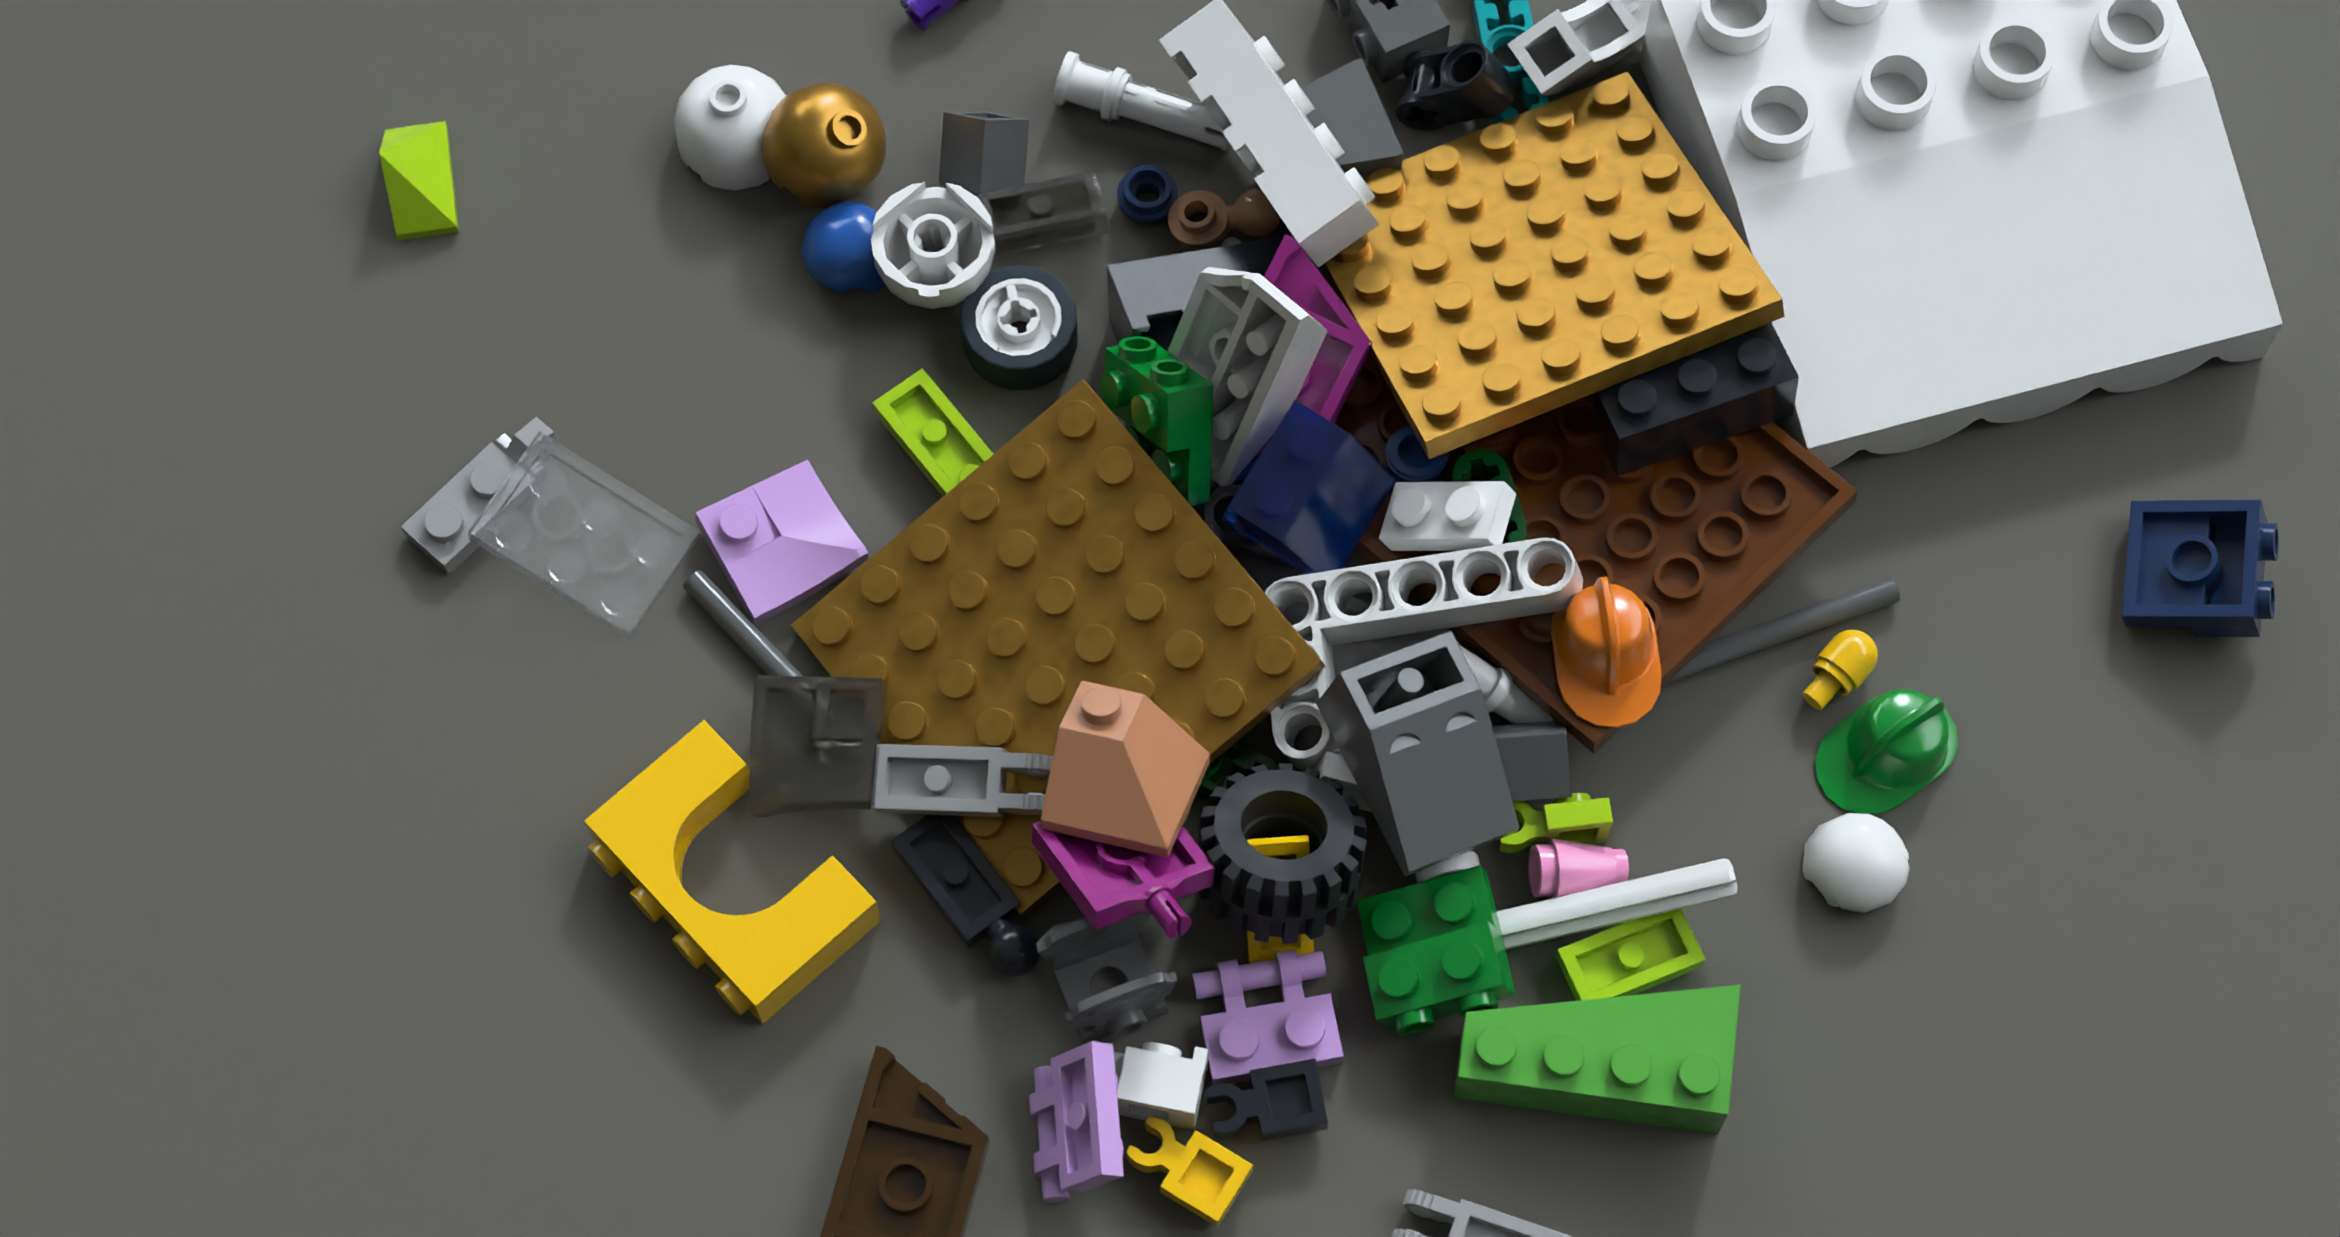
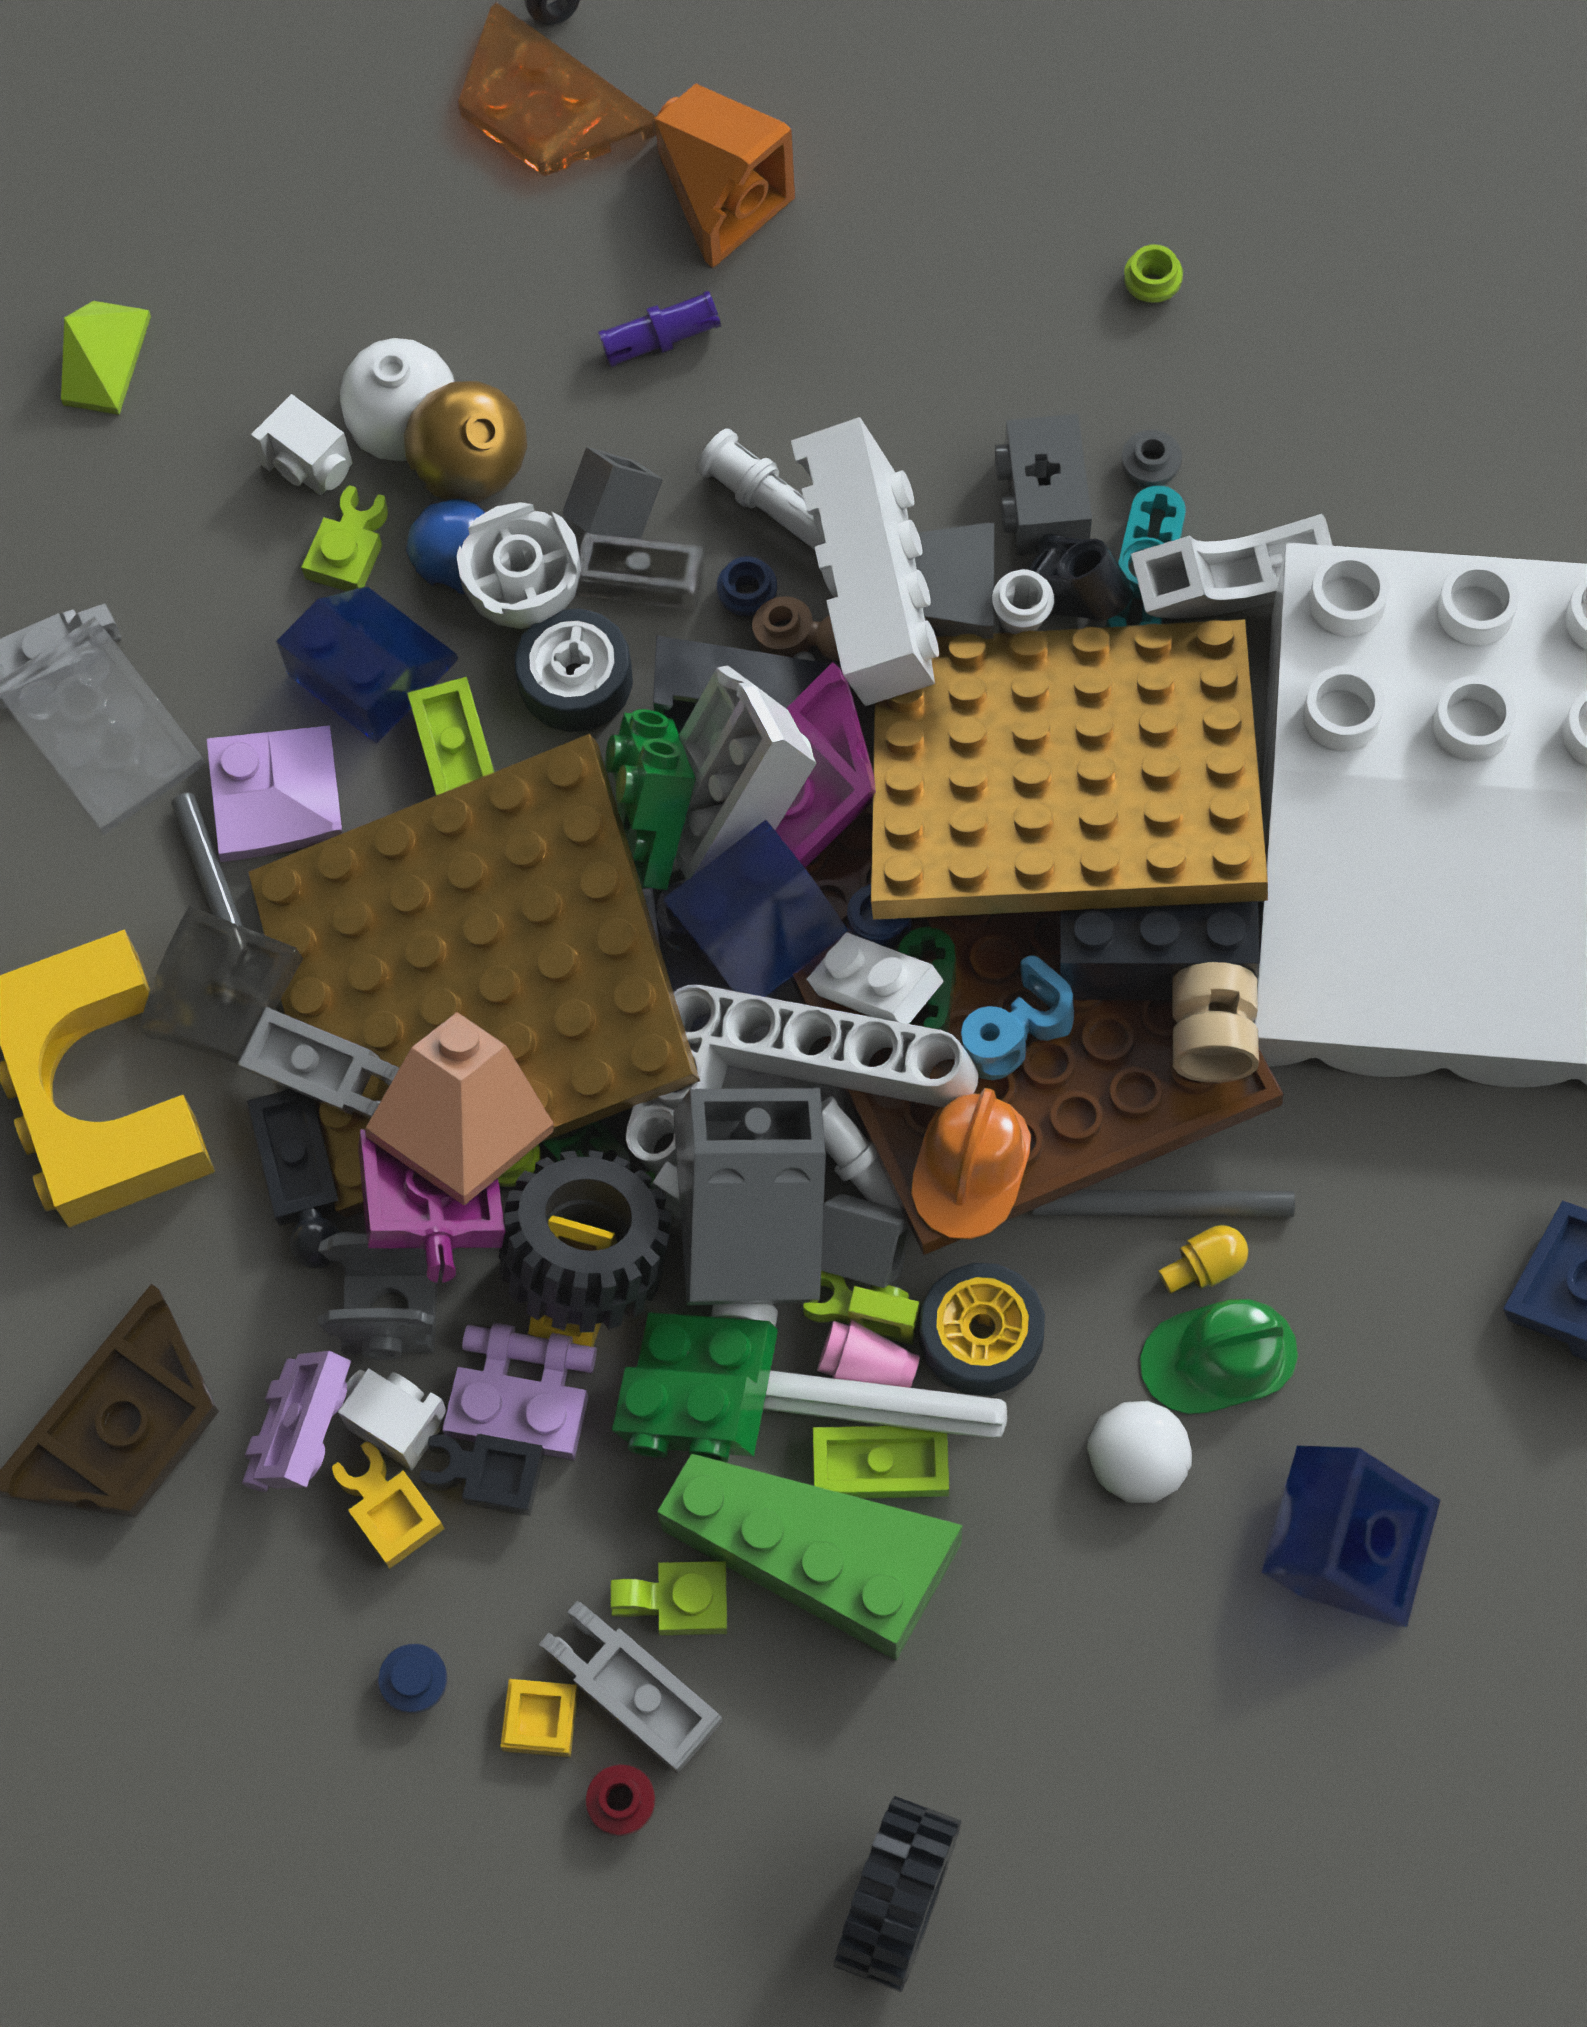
camera: 25 degrees right, 0 degrees up
(664, 202) = (303, 446): none -> white brick
(746, 286) = (346, 549): none -> lime plate
(812, 387) = (363, 658): none -> clear blue slope
(1420, 125) = (1022, 601): none -> white cone
(1502, 1149) = (687, 1598): none -> lime plate
(1586, 522) = (999, 1038): none -> dark azure leg
(1655, 774) = (992, 1297): none -> wheel
(1774, 443) = (1215, 1022): none -> tan wheel
(2075, 865) = (1351, 1533): none -> clear blue slope

